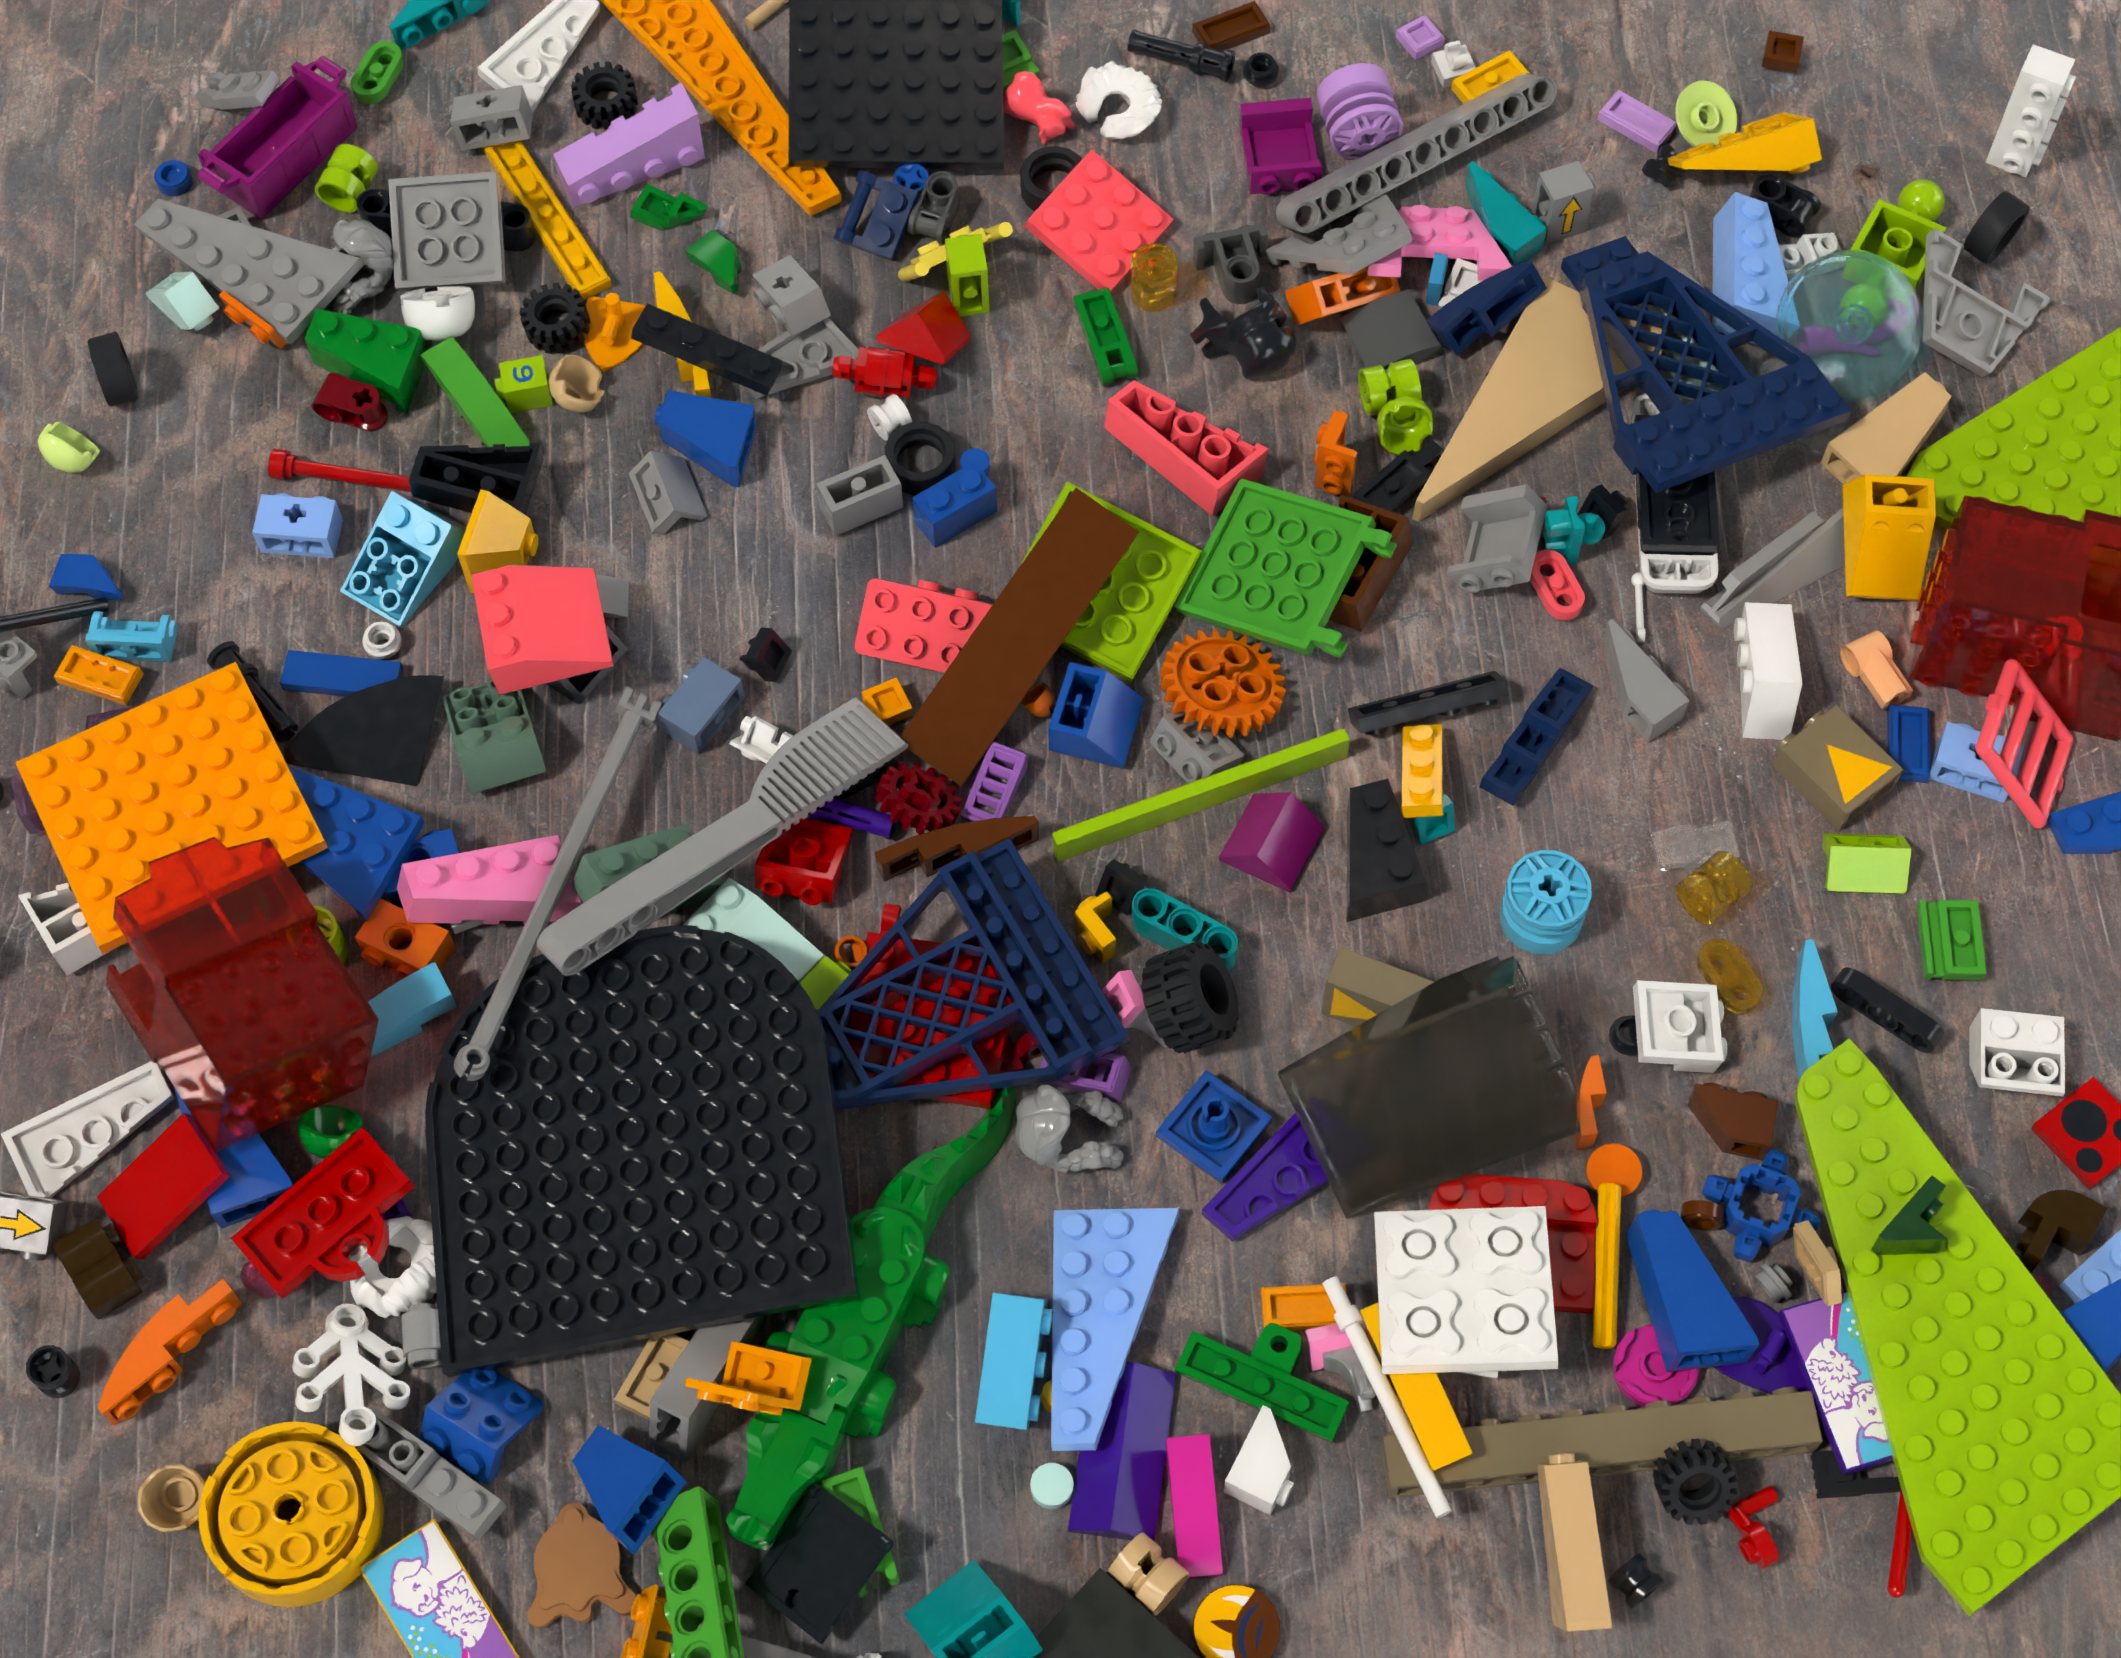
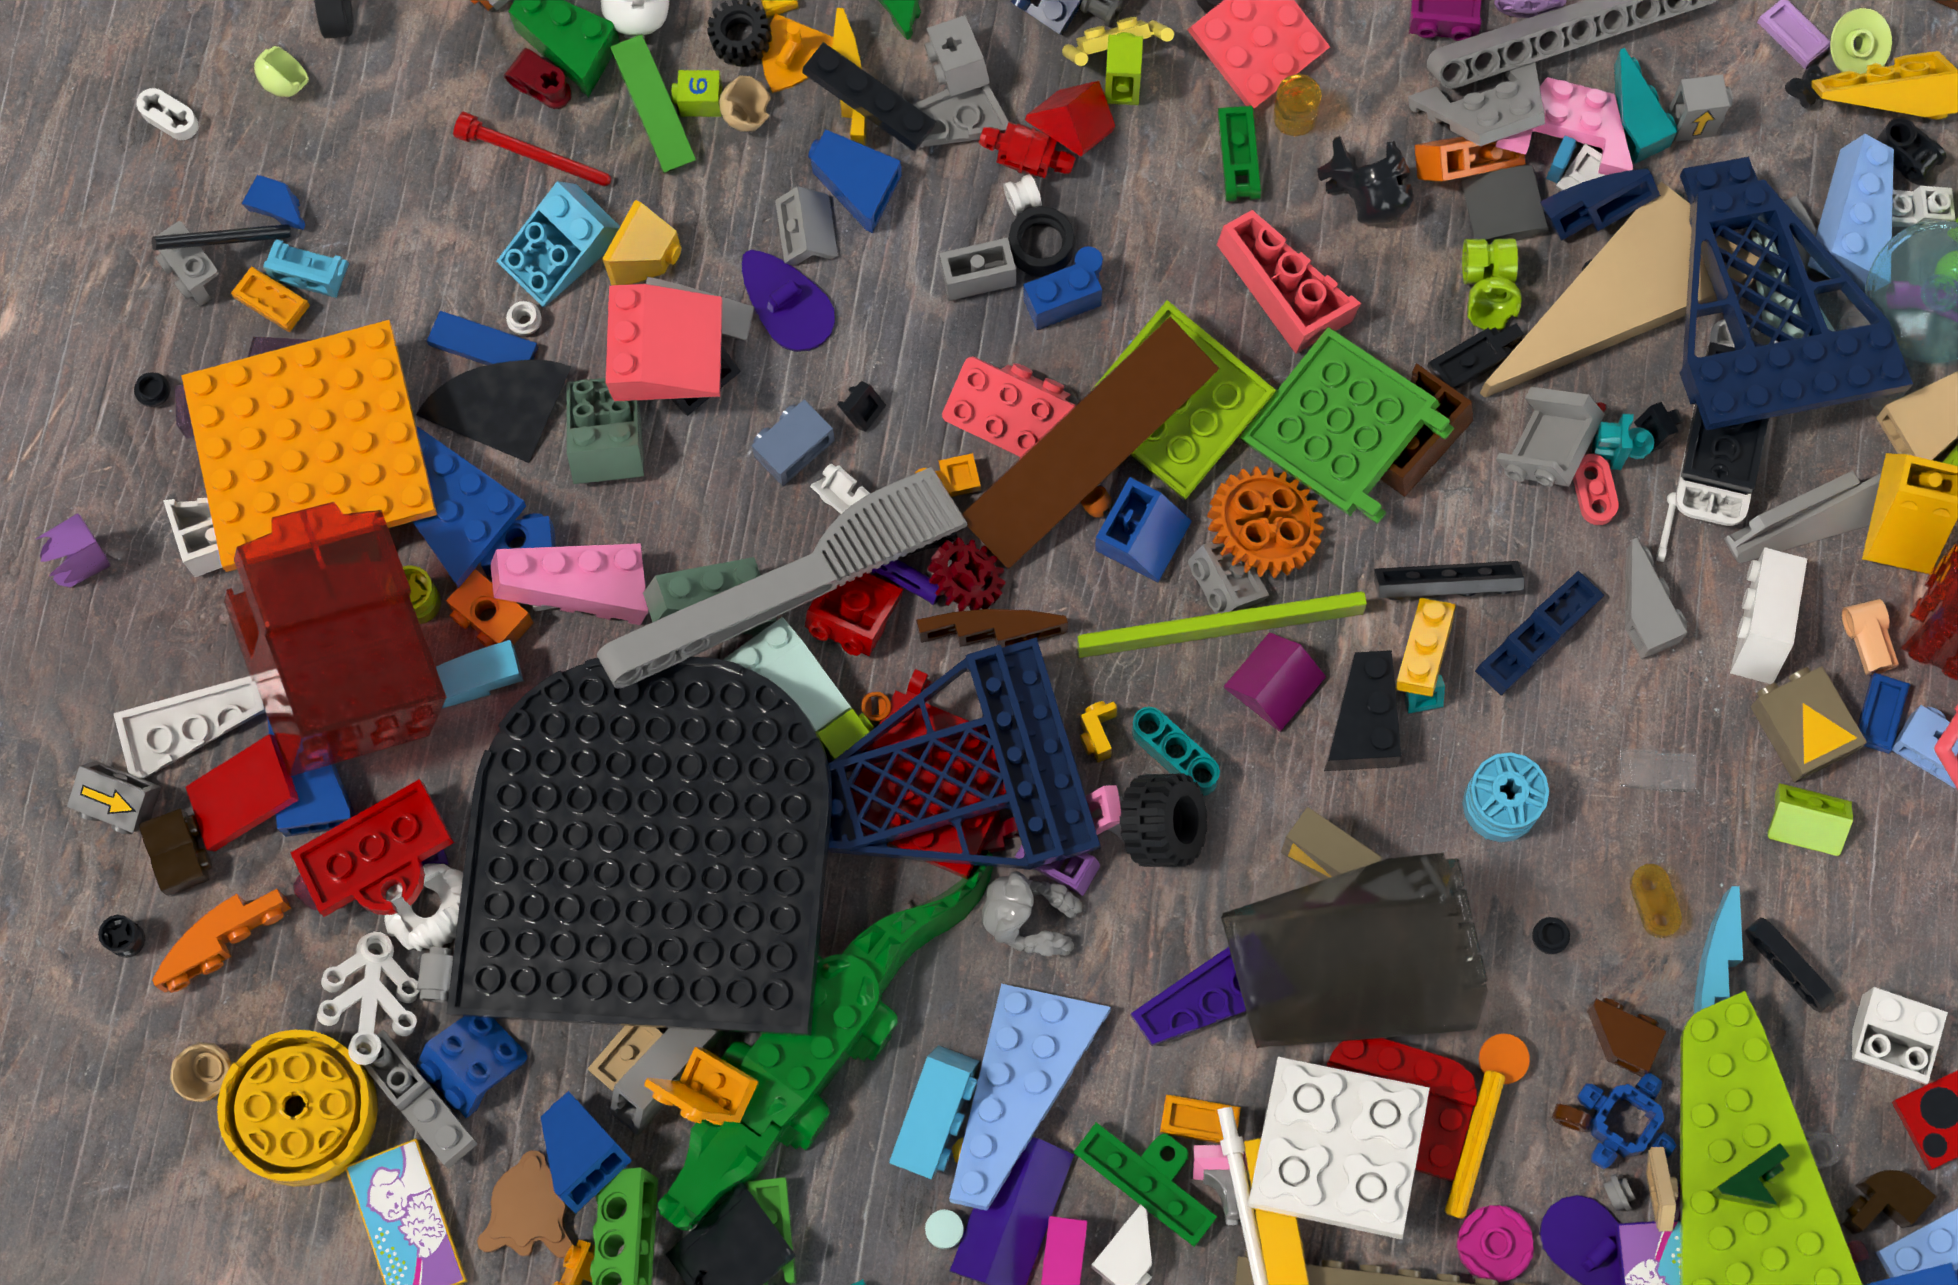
camera: 15 degrees right, 10 degrees up
(274, 715) = (384, 309): black pin -> none
(297, 525) = (456, 191): light blue brick -> none
(327, 1128) = (392, 770): green piece -> none
(457, 473) = (627, 177): black wedge -> none
(555, 883) = (631, 587): light grey hinge -> none
(663, 571) = (787, 302): none -> dark purple shield
(1002, 763) = (1054, 550): medium lavender slope -> none
(1121, 885) = (1129, 696): black tile -> none
(1214, 1127) = (1159, 938): blue plate -> none
(1234, 259) = (1376, 99): dark grey pin -> none
(1333, 460) = (1417, 333): orange bracket -> none
(1591, 1096) = (1500, 983): orange slope -> none
(1679, 1025) = (1596, 939): white plate -> none
(1685, 1298) = (1535, 1190): blue slope -> none
(1713, 888) = (1660, 817): clear yellow wheel -> none
(1951, 939) = (1867, 911): bright green plate -> none

